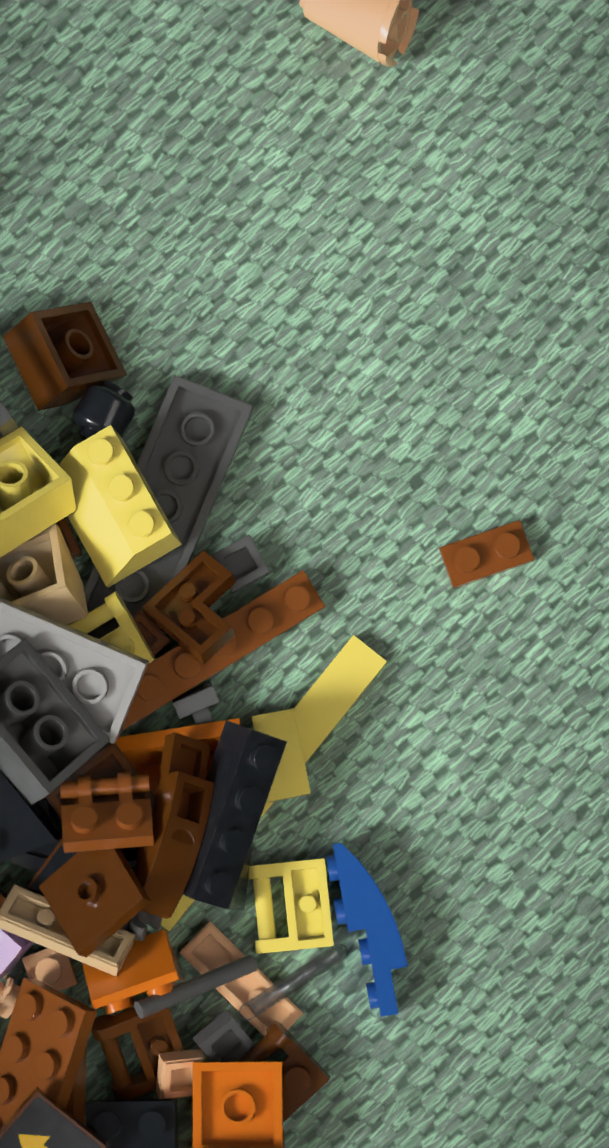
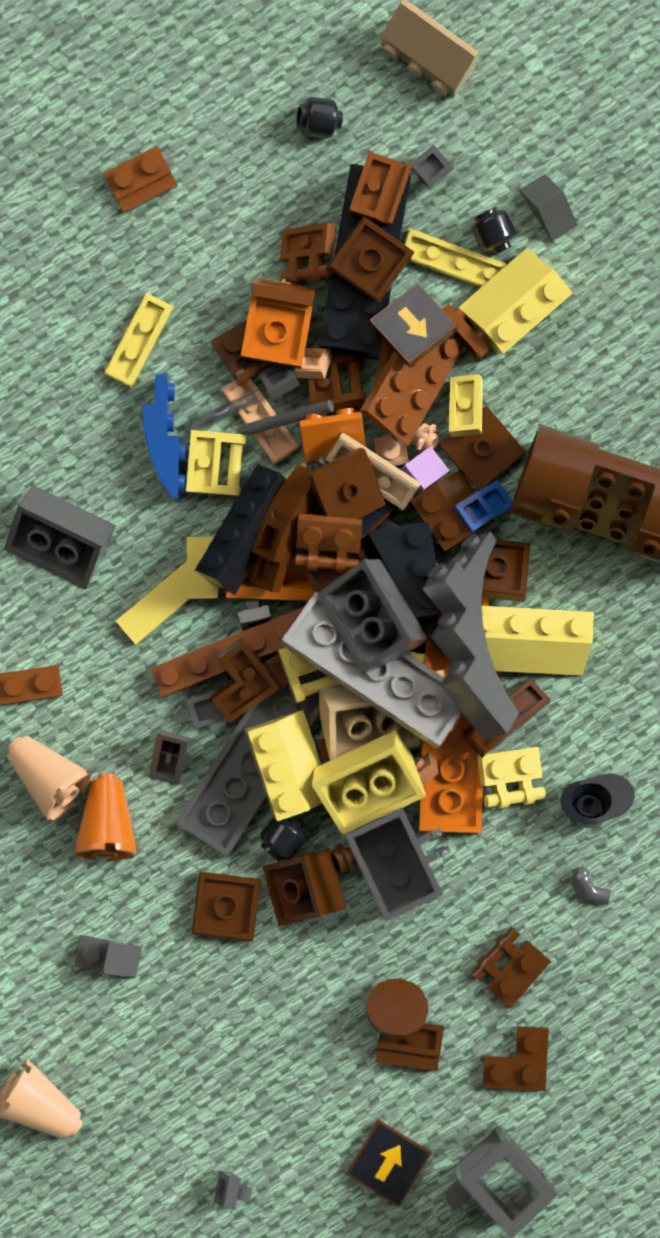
camera: 175 degrees left, 5 degrees up
(18, 401) = (343, 859): none -> reddish brown plate
(163, 312) = (226, 906): none -> reddish brown plate
(277, 494) = (169, 756): none -> dark grey slope
(308, 220) = (108, 956): none -> dark grey slope
(345, 389) = (106, 822): none -> orange cone
(433, 1062) = (138, 340): none -> light yellow tile
(437, 434) = (47, 776): none -> light nougat cone
(487, 762) = (58, 536): none -> dark grey slope

